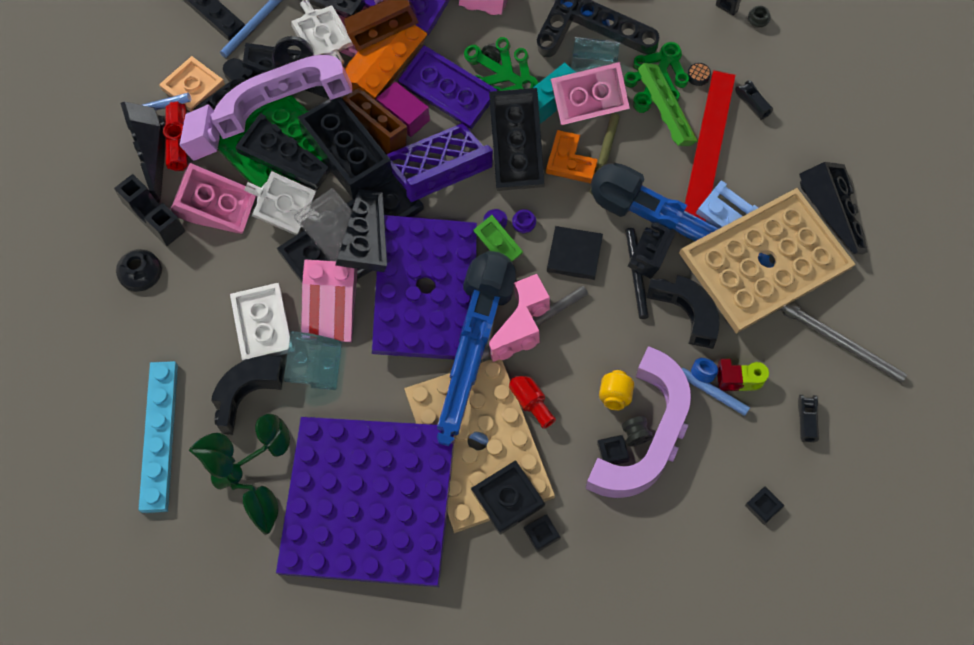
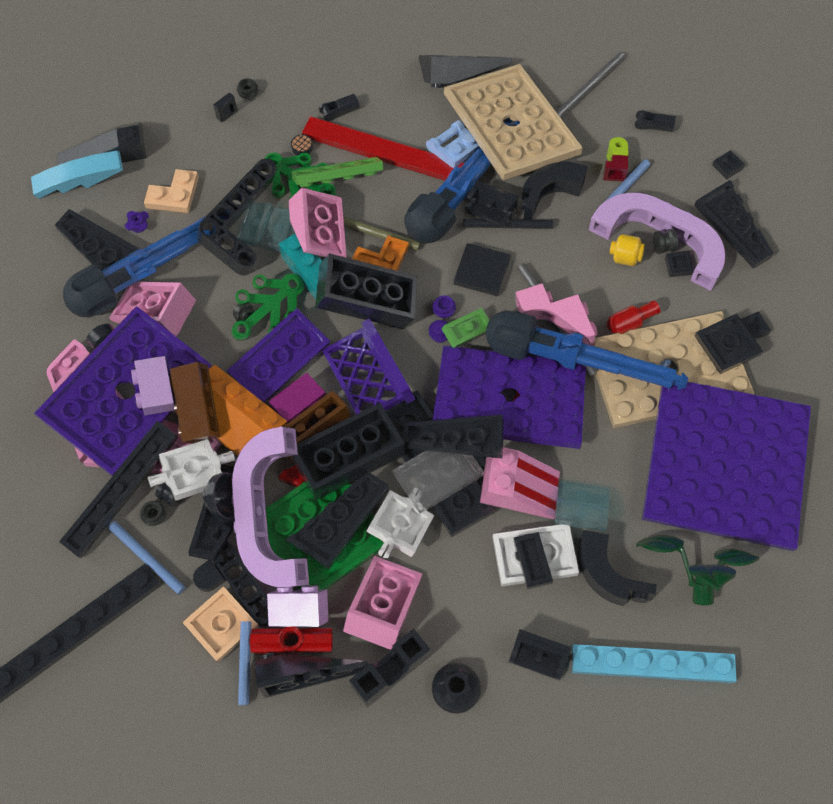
camera: 85 degrees left, 0 degrees up
(167, 333) = (539, 654): none -> black hinge
(250, 316) = (533, 560): none -> black tile
(286, 18) = (150, 507): none -> pearl dark grey plate
(679, 508) = (727, 214): none -> black wing
(704, 370) = (609, 185): blue tile -> none

